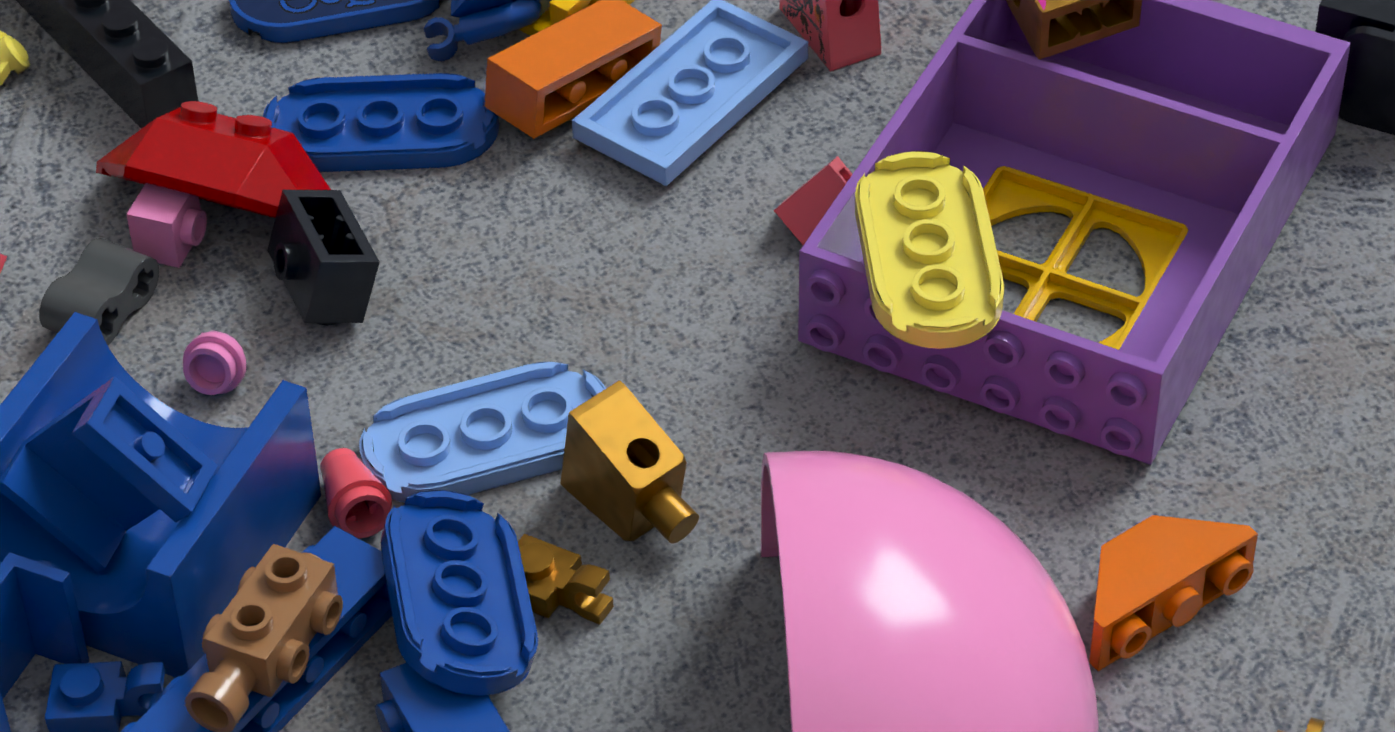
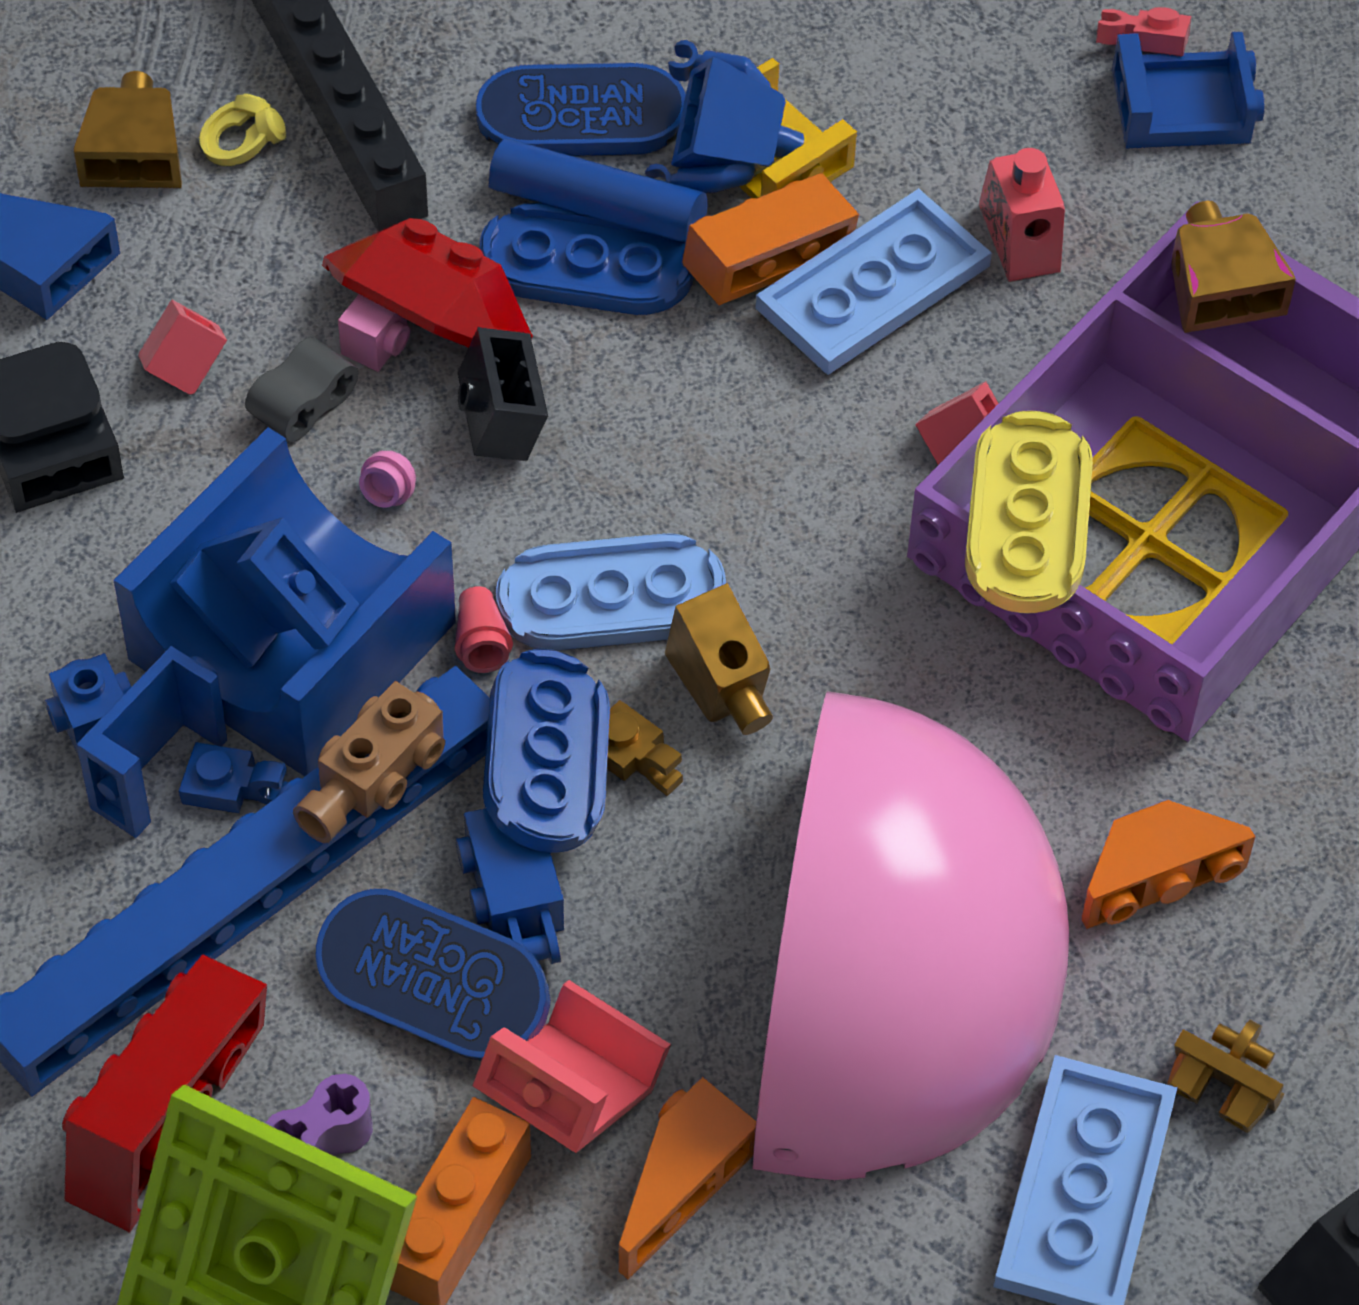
camera: 10 degrees right, 10 degrees up
(376, 52) = (595, 190): none -> blue brick

